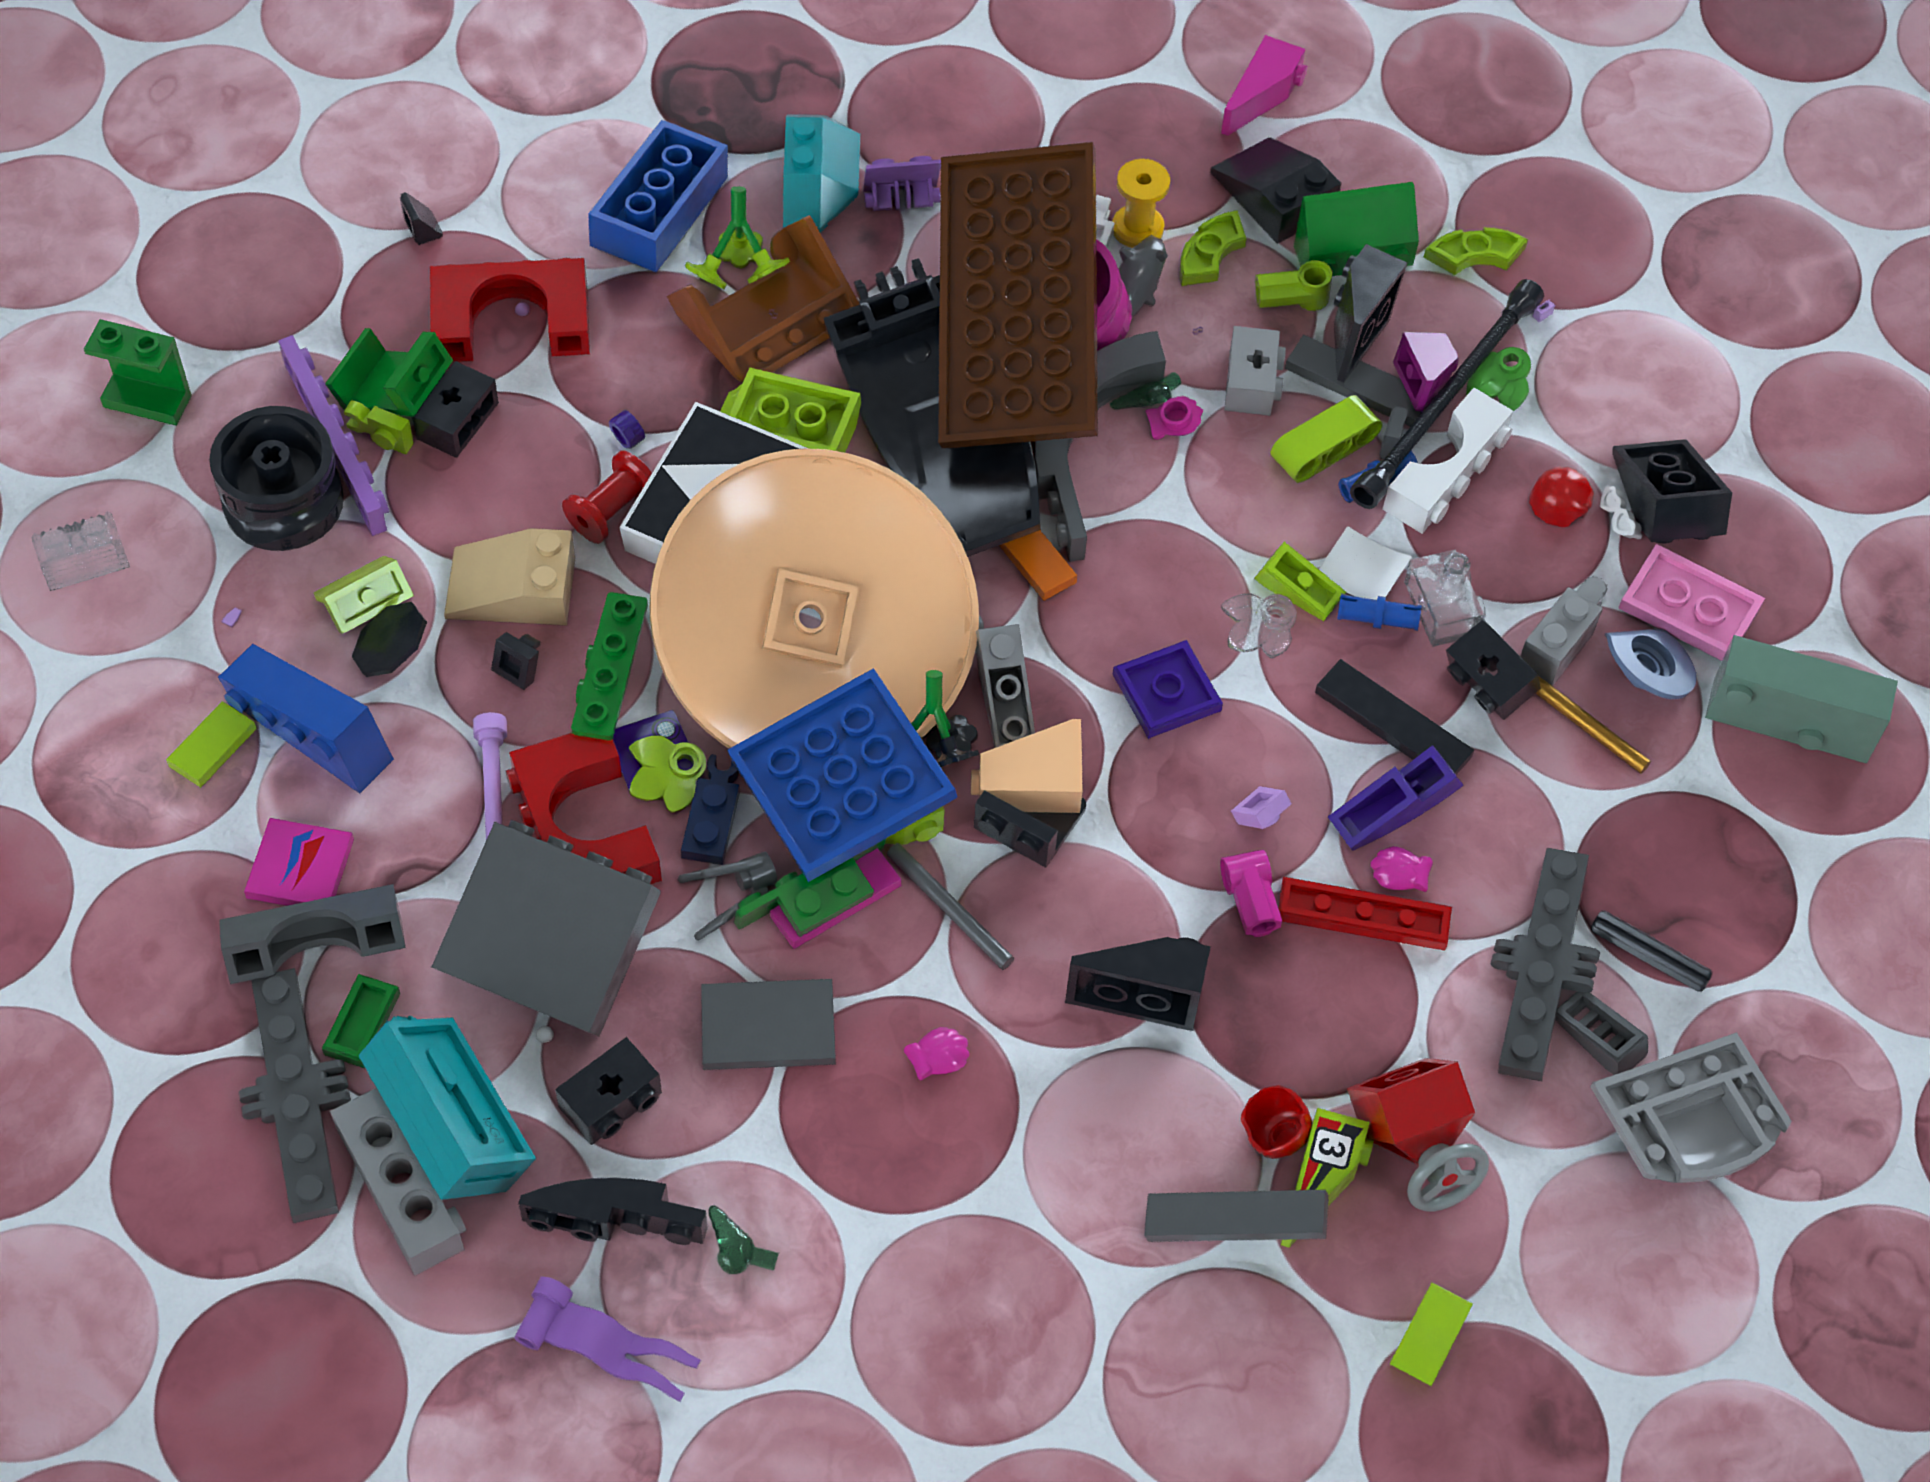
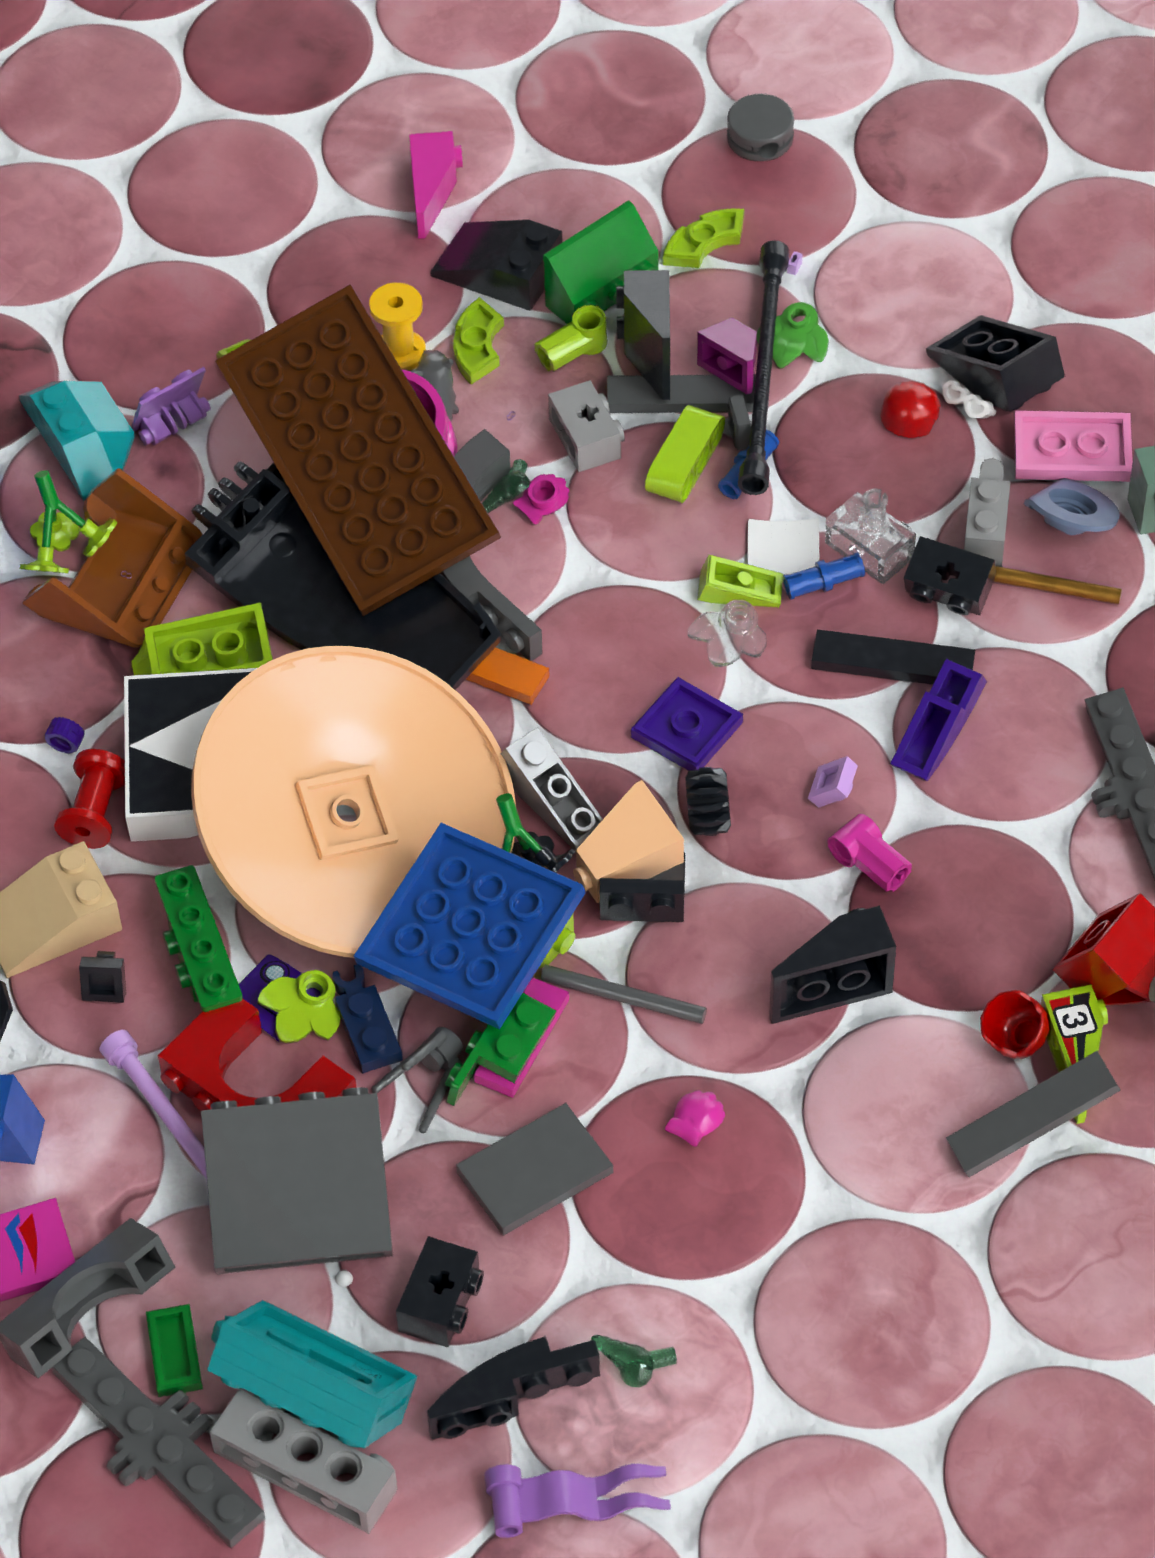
camera: 25 degrees left, 5 degrees down
(1133, 768) = (708, 801): none -> black gear
(1364, 913) = (972, 825): red tile -> none
(1401, 869) = (979, 775): dark pink animal -> none
(1424, 490) = (795, 456): white arch -> none
(1591, 171) = (760, 127): none -> dark grey head

